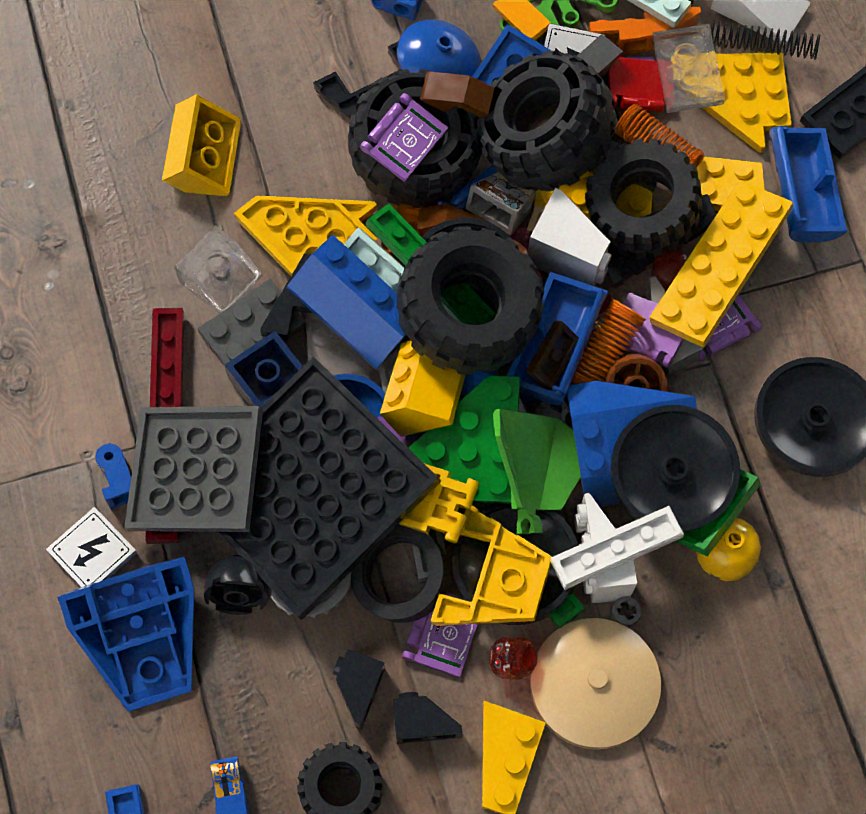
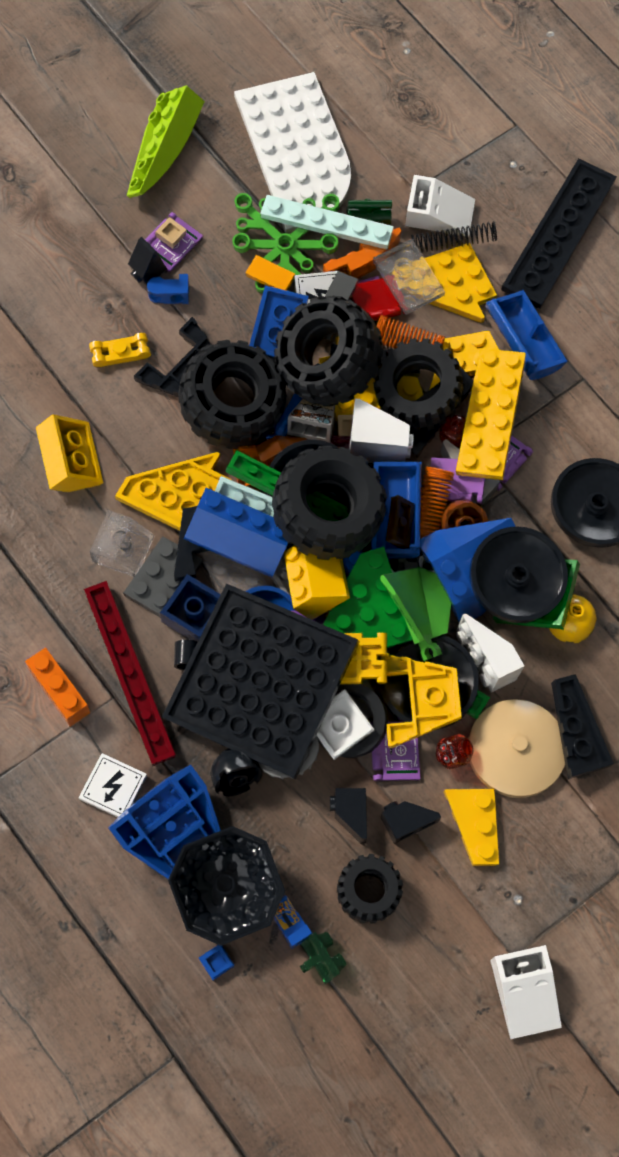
camera: 25 degrees left, 0 degrees up
(74, 410) = (57, 687): none -> orange brick
(115, 467) = (105, 718): blue leg -> none
(164, 717) = (226, 885): none -> black rock
(194, 469) = (170, 697): dark grey plate -> none
(311, 49) = (120, 350): none -> yellow plate
(385, 576) = (343, 725): none -> white tile
(404, 137) = (229, 397): medium lavender piece -> none
(423, 48) = (208, 326): blue dish -> none
(452, 90) = (255, 349): reddish brown slope -> none
(616, 547) = (501, 645): white tile -> none
(630, 604) = (518, 682): dark grey bush -> none
(680, 694) = (579, 733): none -> black wing

